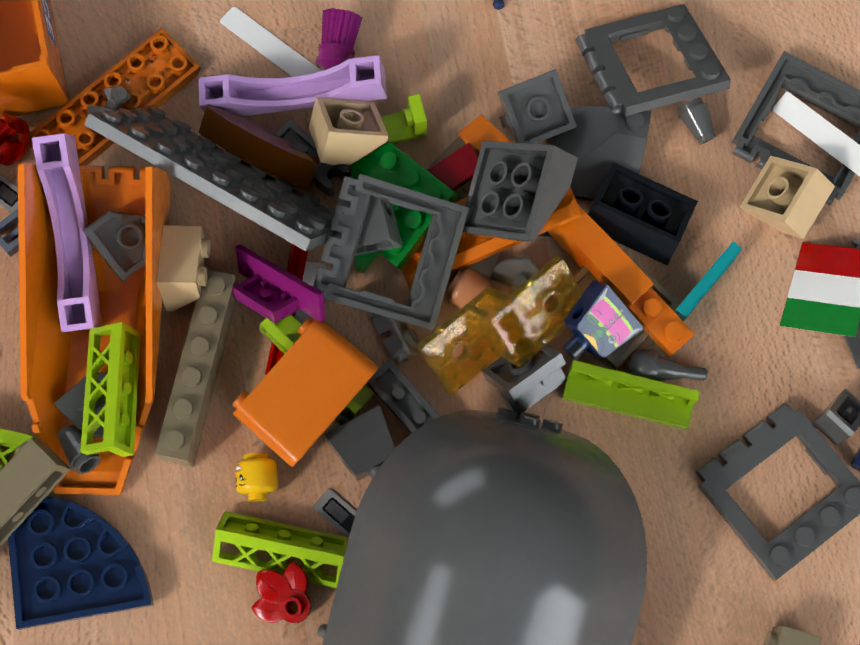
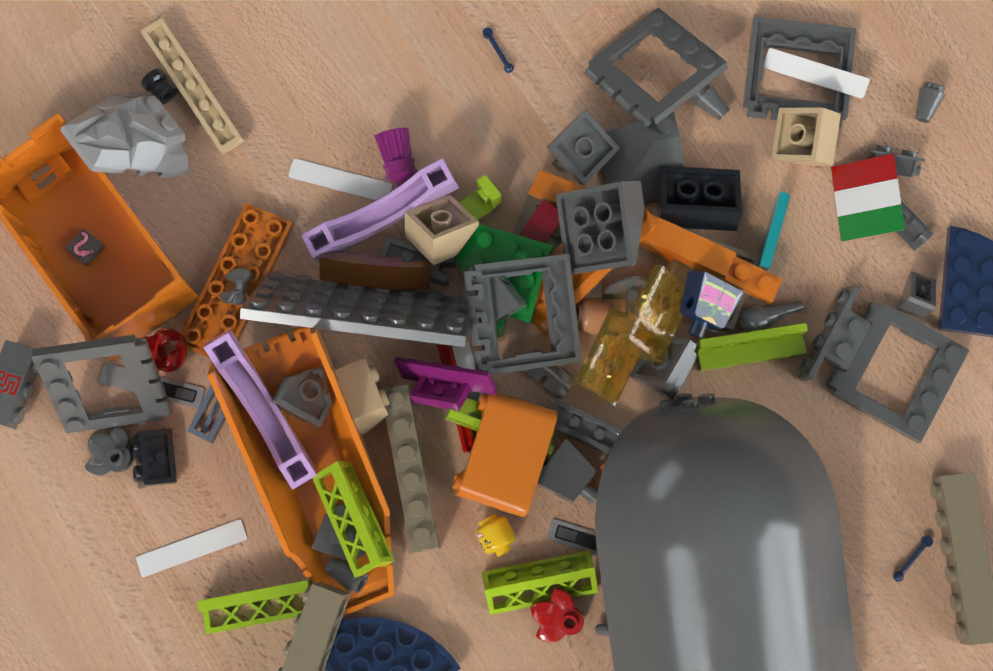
camera: 20 degrees left, 5 degrees up
(731, 427) = (839, 338): none -> dark grey bracket

